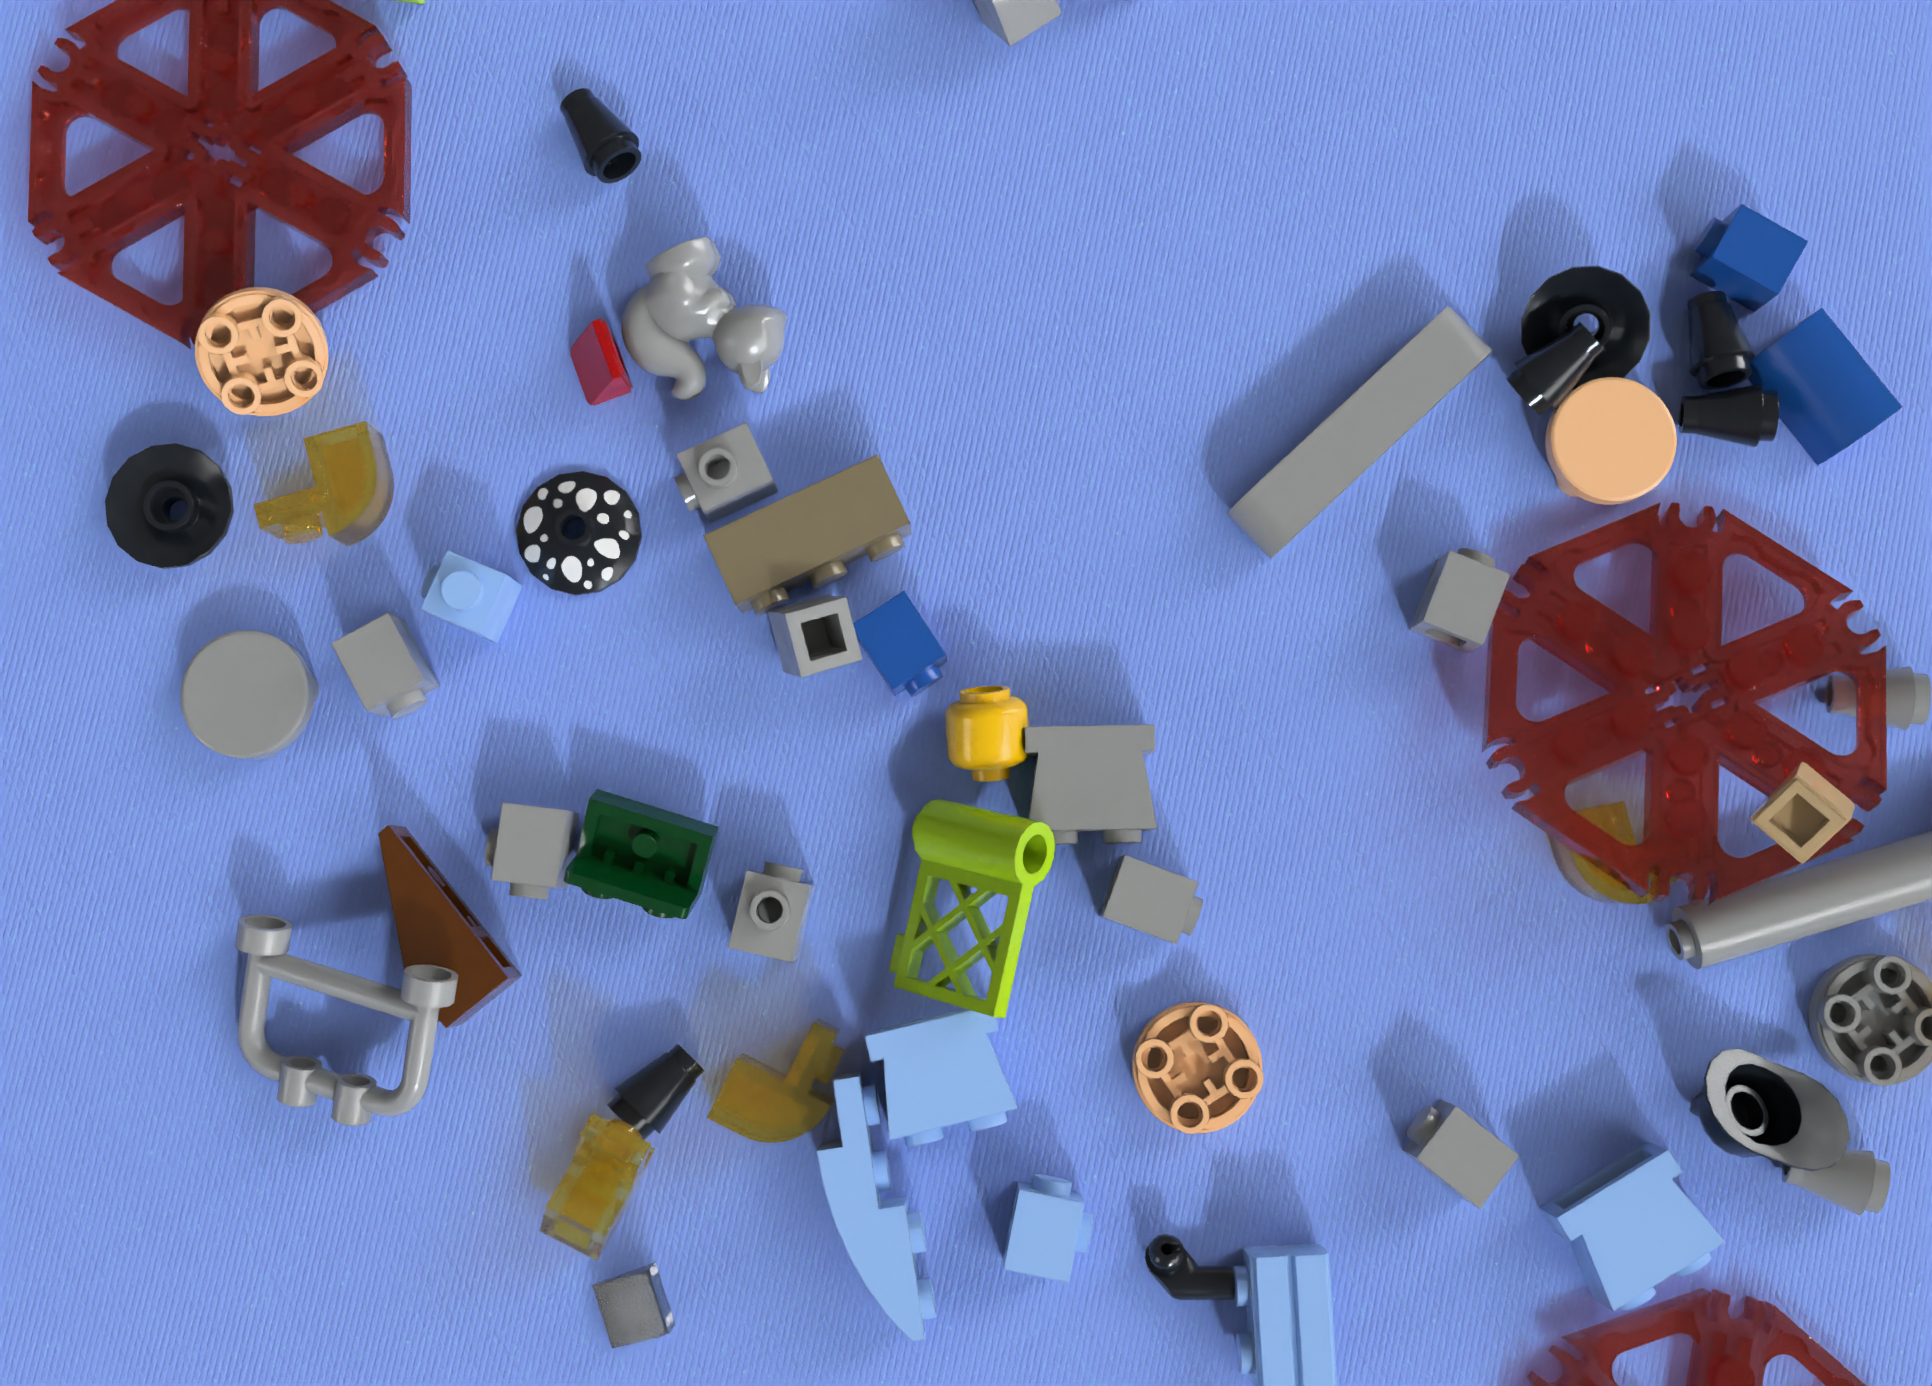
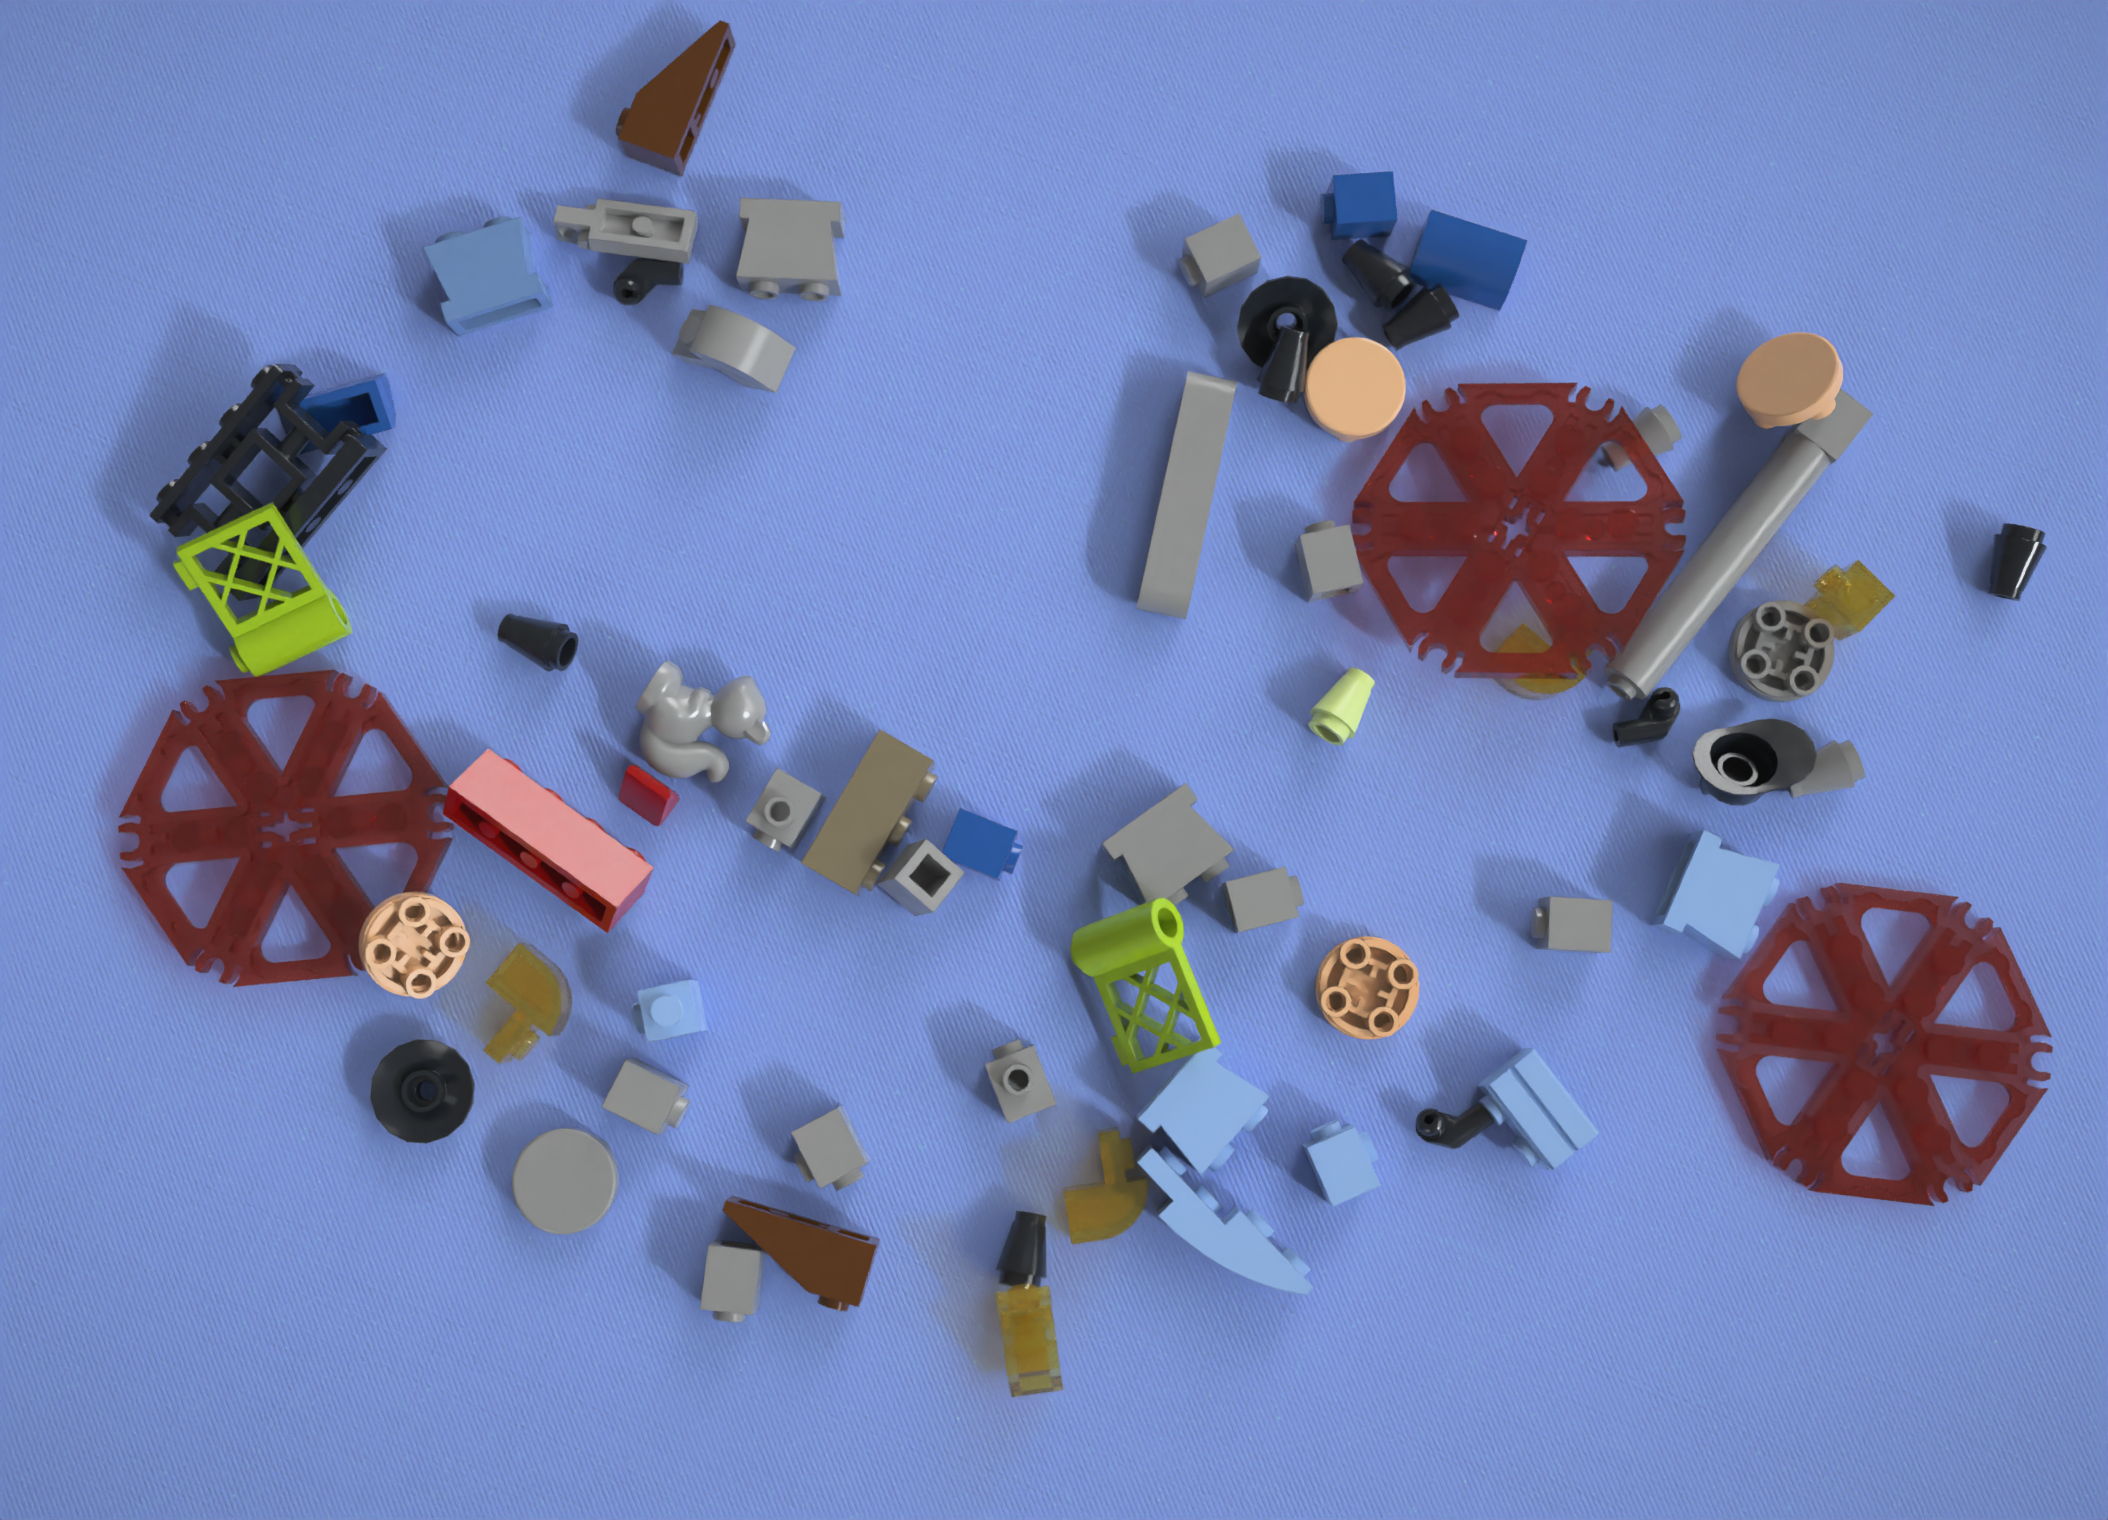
camera: 35 degrees left, 0 degrees up
(302, 1077) = (782, 1408): light grey bar -> none
(342, 911) = (732, 1280): none -> light grey brick
(467, 338) = (547, 839): none -> brick
(595, 558) = (737, 921): black dish -> none
(634, 1306) = (1107, 1403): clear smoke slope -> none
(642, 855) = (906, 1103): dark green bracket -> none
(986, 732) = (1078, 863): yellow head -> none
(1369, 760) = (1342, 707): none -> yellowish green cone
(1563, 211) = (1219, 256): none -> light grey brick
(1688, 1000) = (1652, 723): none -> black arm
(1803, 812) = (1640, 553): tan slope -> none

